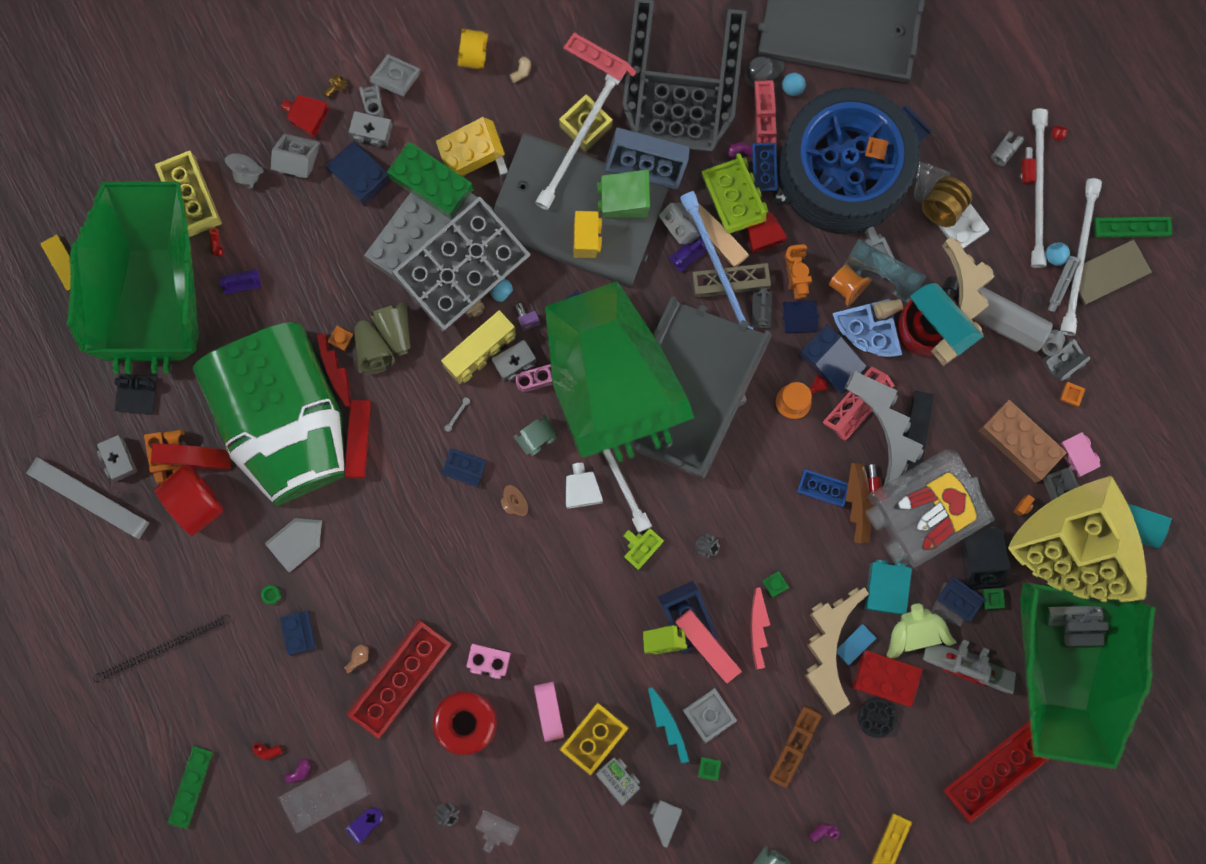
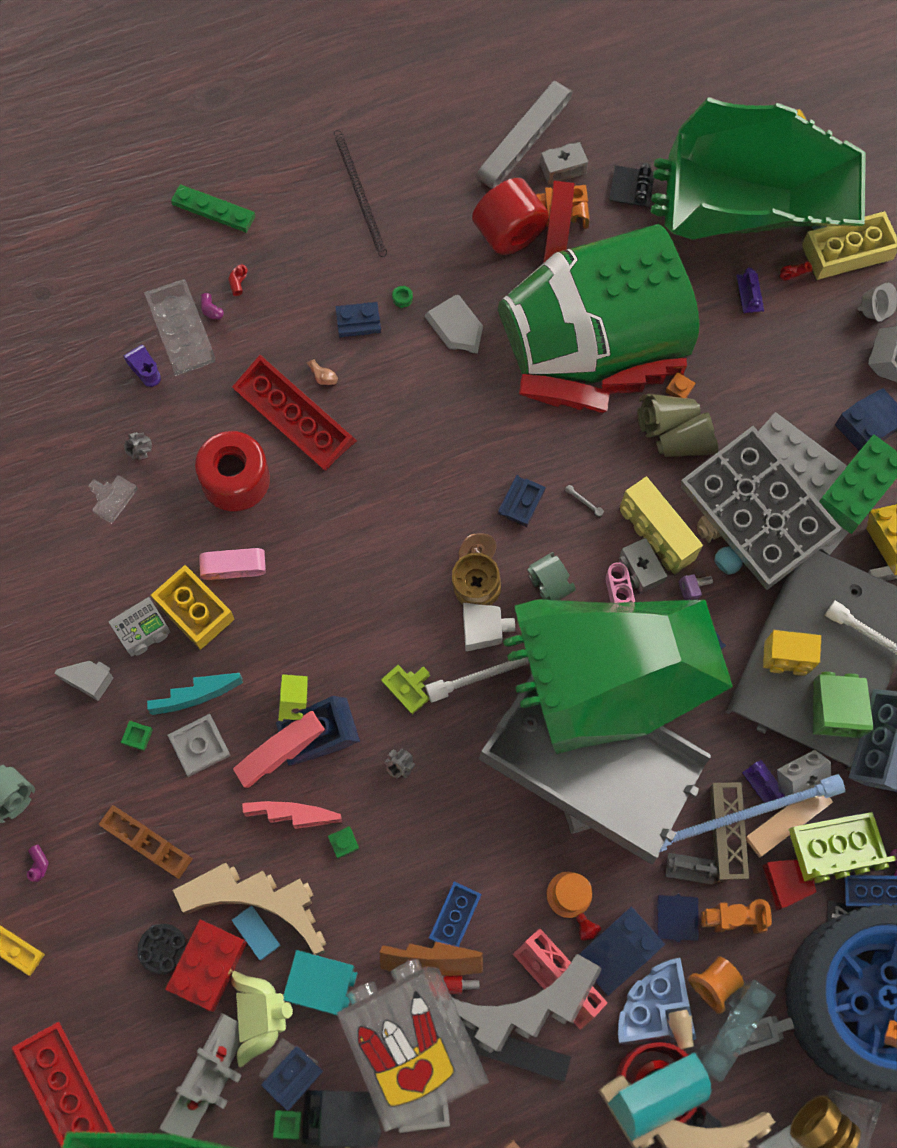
camera: 95 degrees right, 10 degrees down
(489, 656) = (304, 506): bright pink brick -> none
(534, 496) = (480, 570): none -> pearl gold wheel

